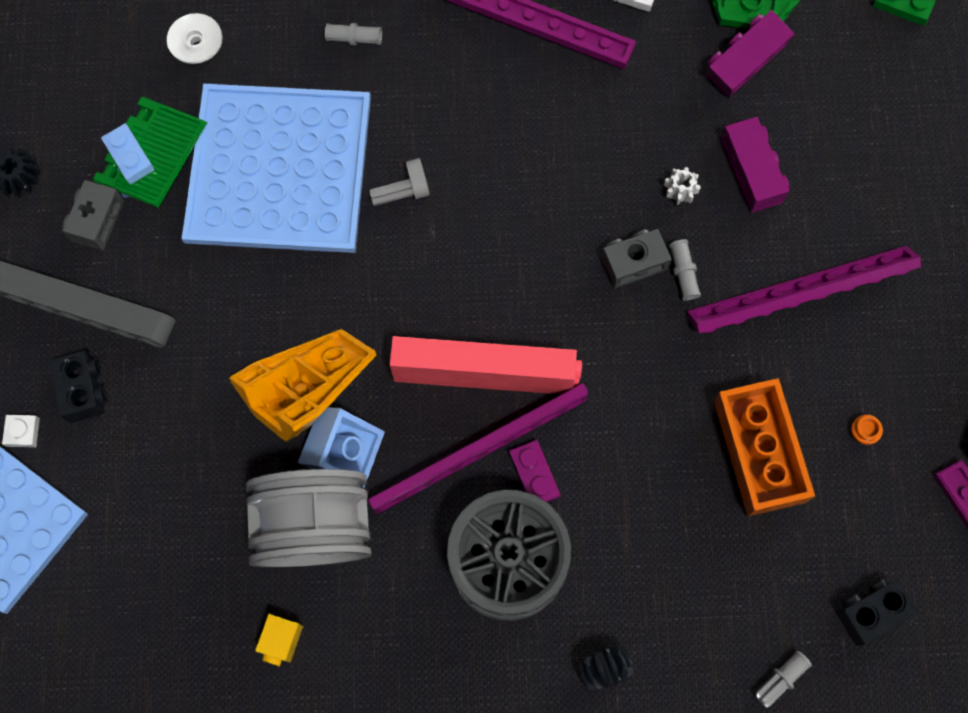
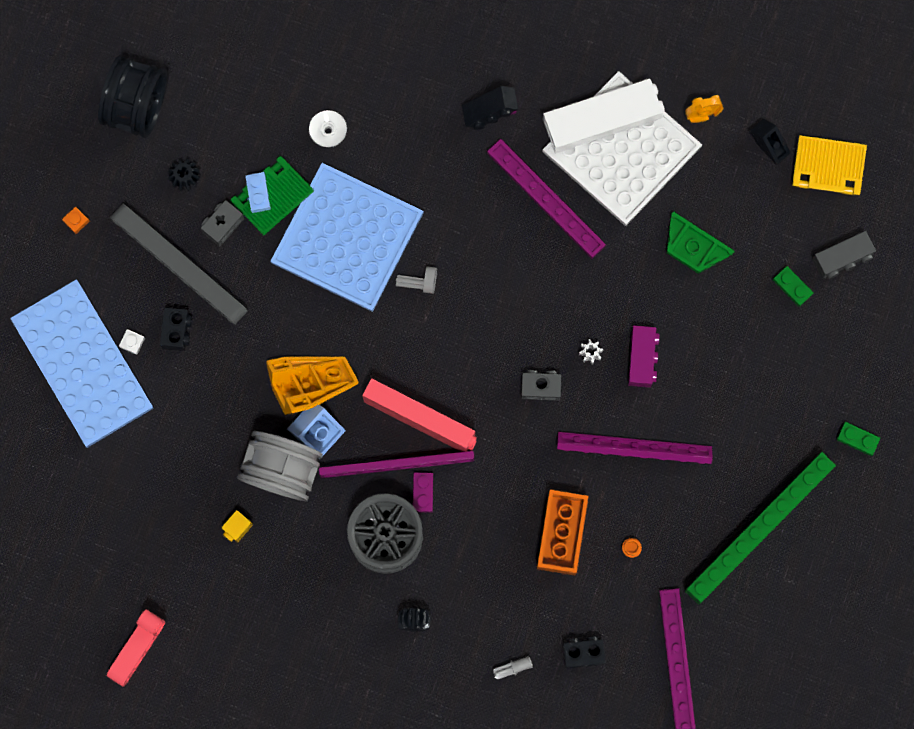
camera: 20 degrees right, 5 degrees up
(353, 34) = (429, 165): light grey pin -> none
(685, 270) = (568, 405): light grey pin -> none
(749, 53) = (672, 282): magenta brick -> none

